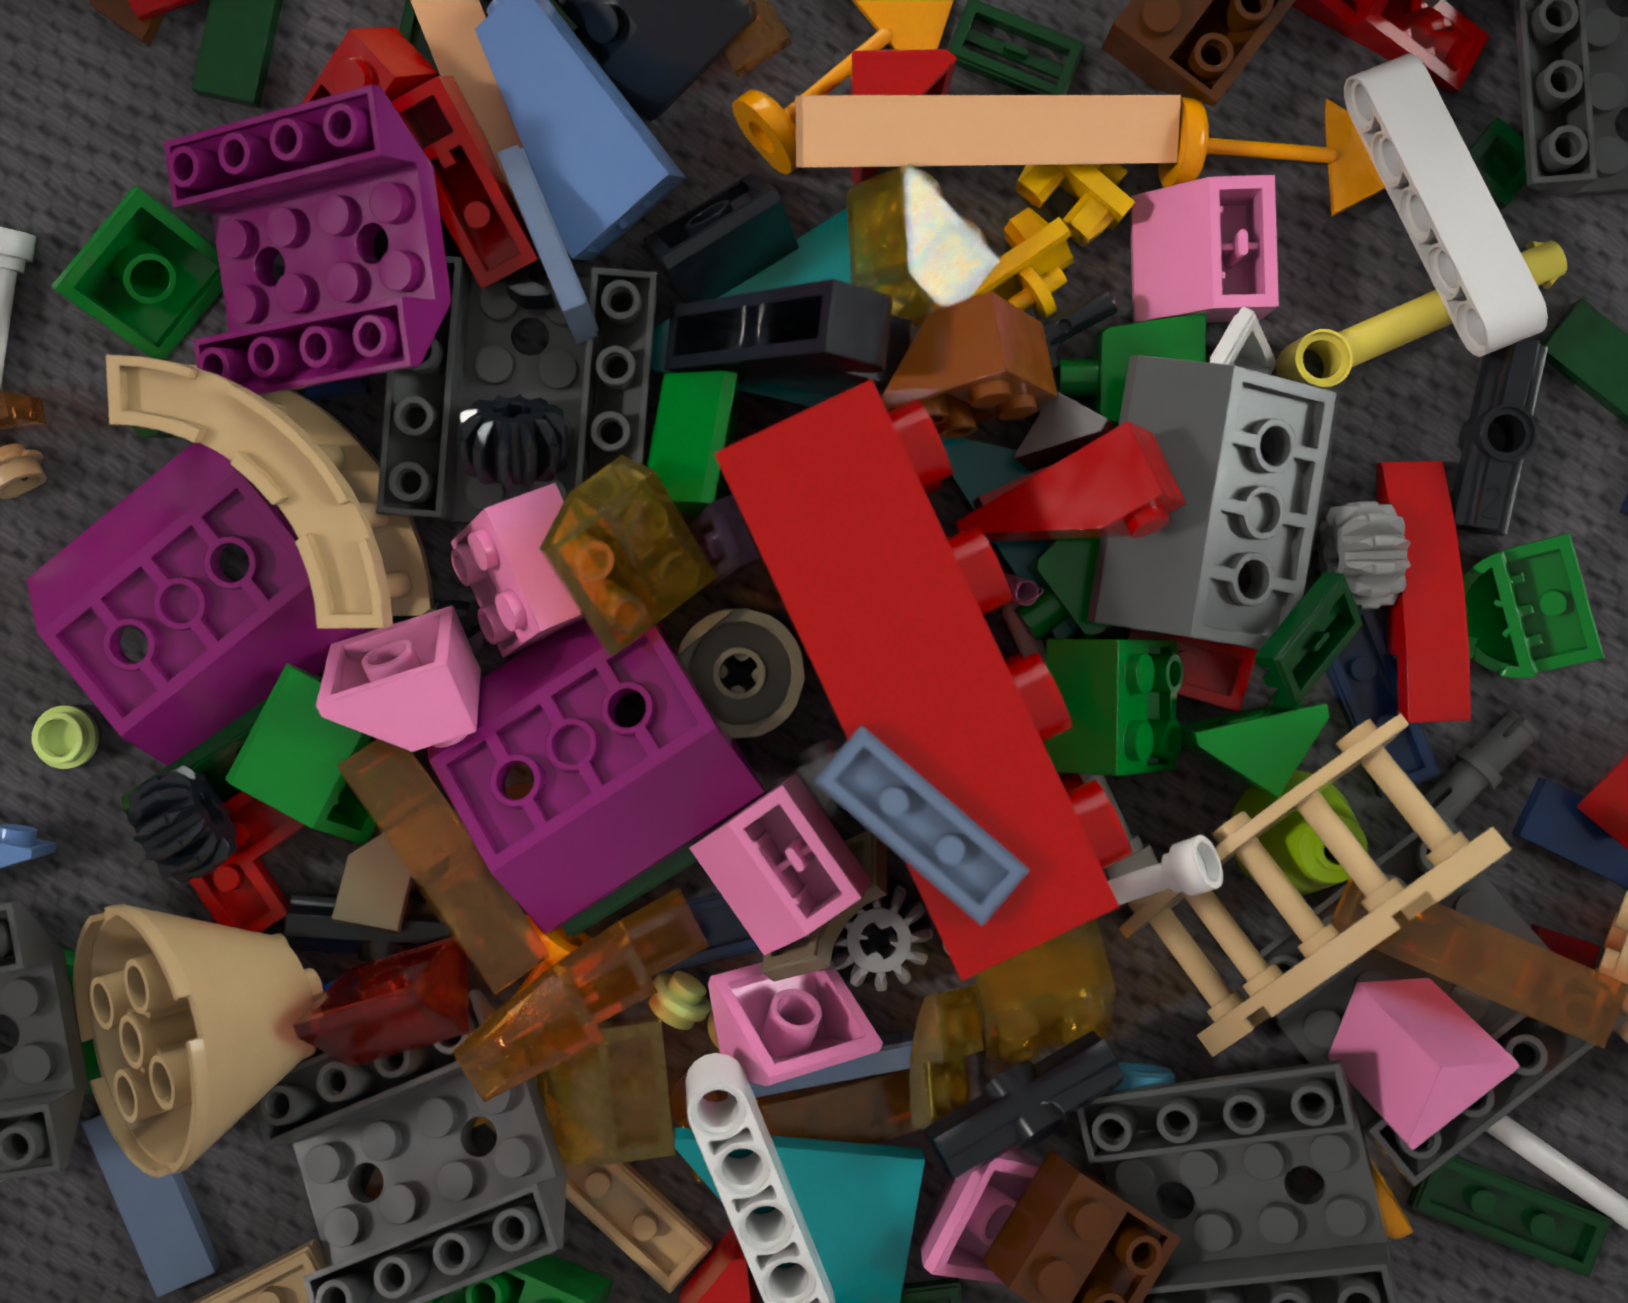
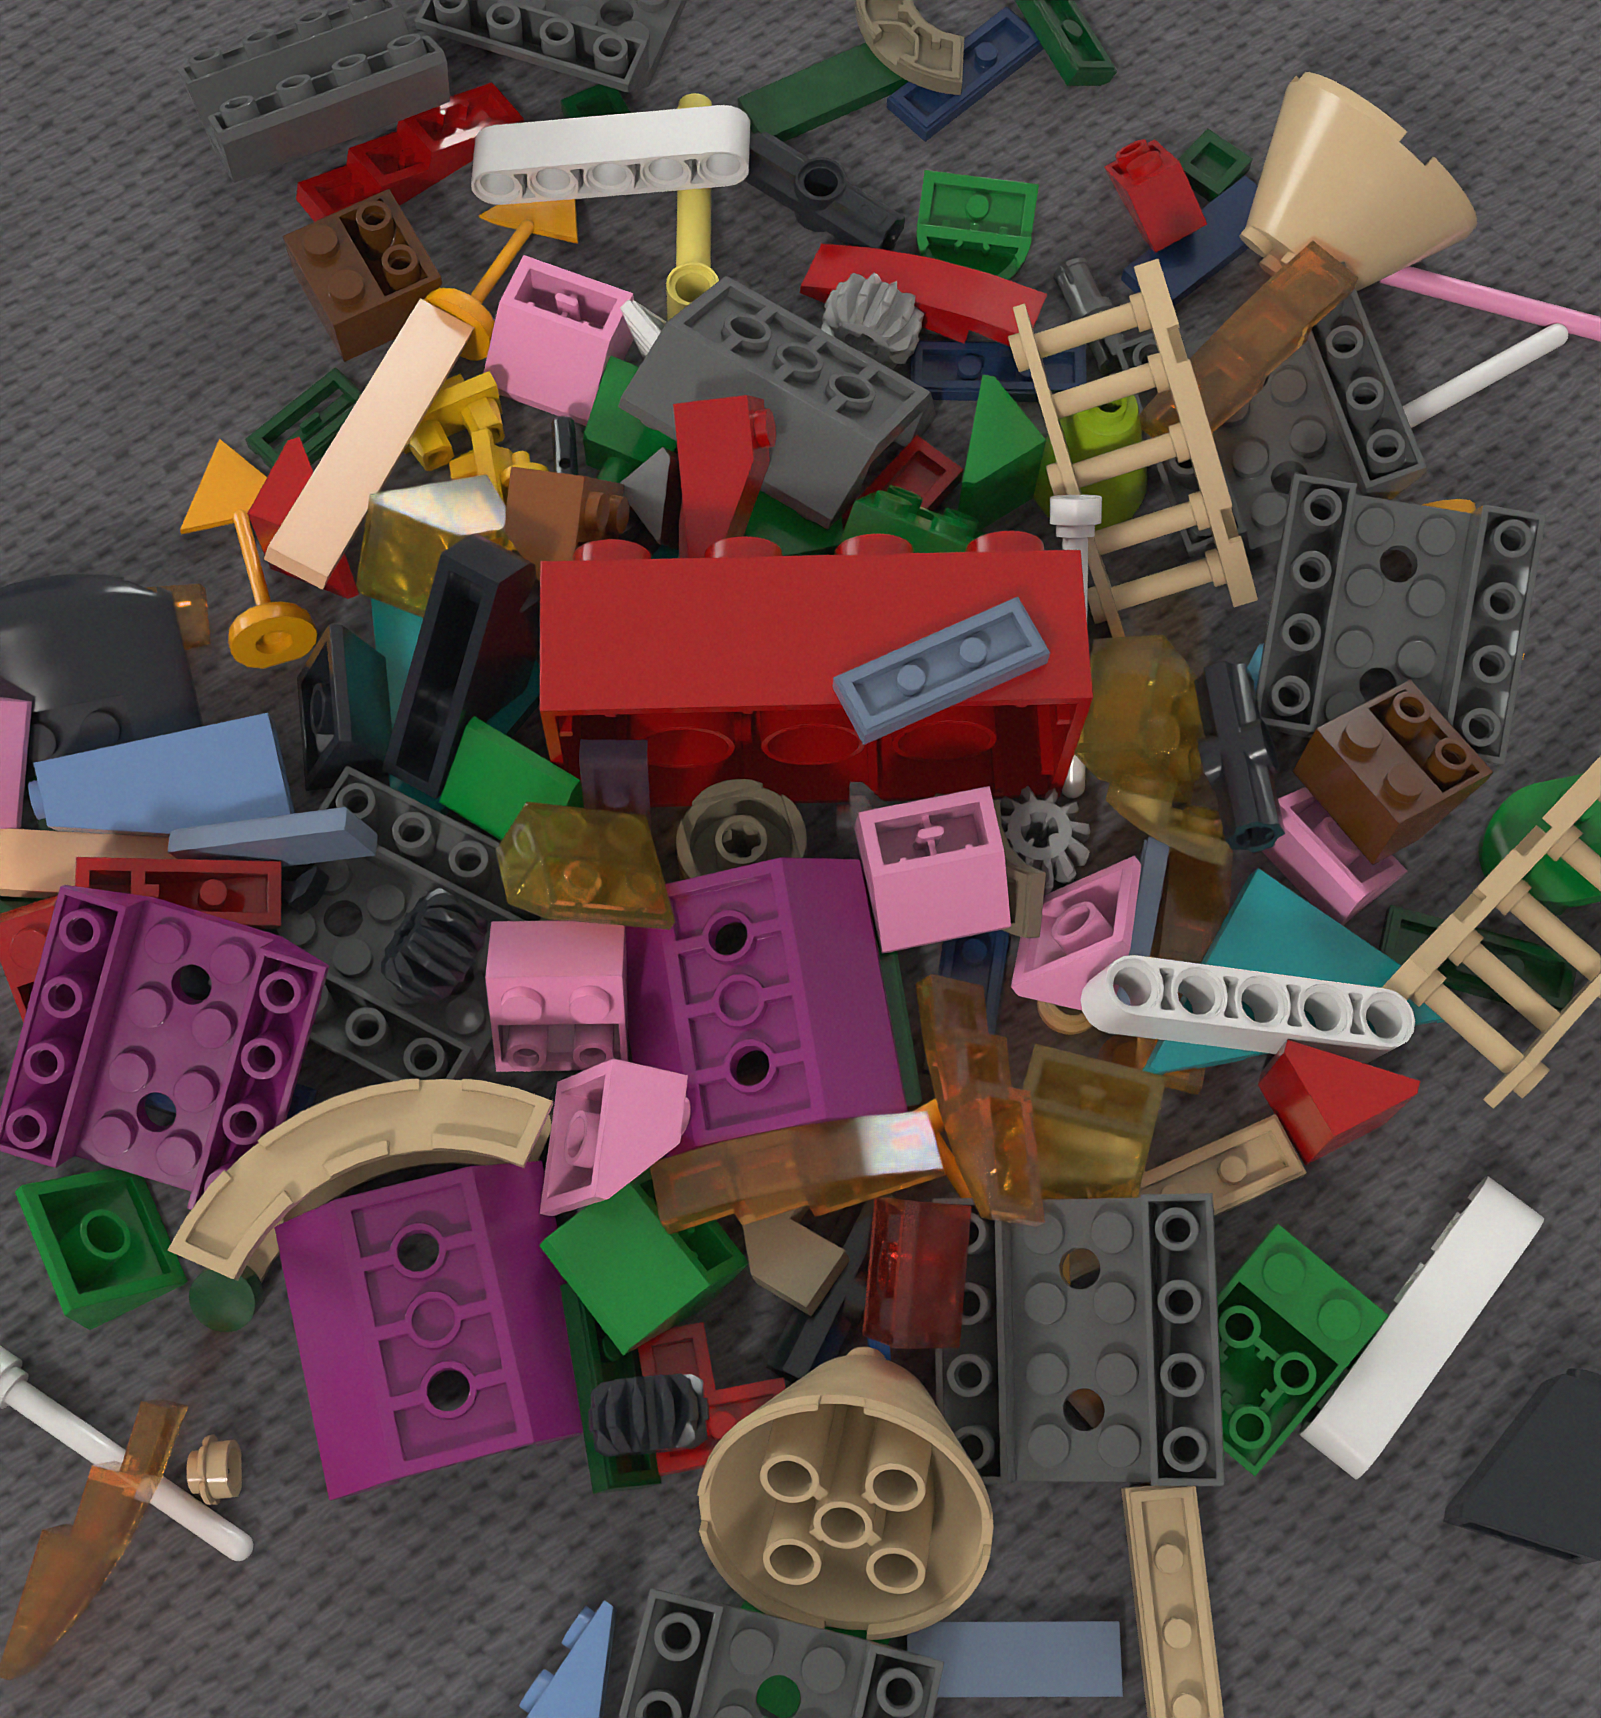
camera: 75 degrees left, 20 degrees down
(65, 737) = (505, 1539): yellowish green plate -> none
(679, 1000) = (1023, 1036): yellowish green plate -> none
(1309, 640) = (924, 373): dark green tile -> none
(1416, 1055) = (1316, 427): bright pink slope -> none
(1513, 1213) = (1490, 436): dark green tile -> none

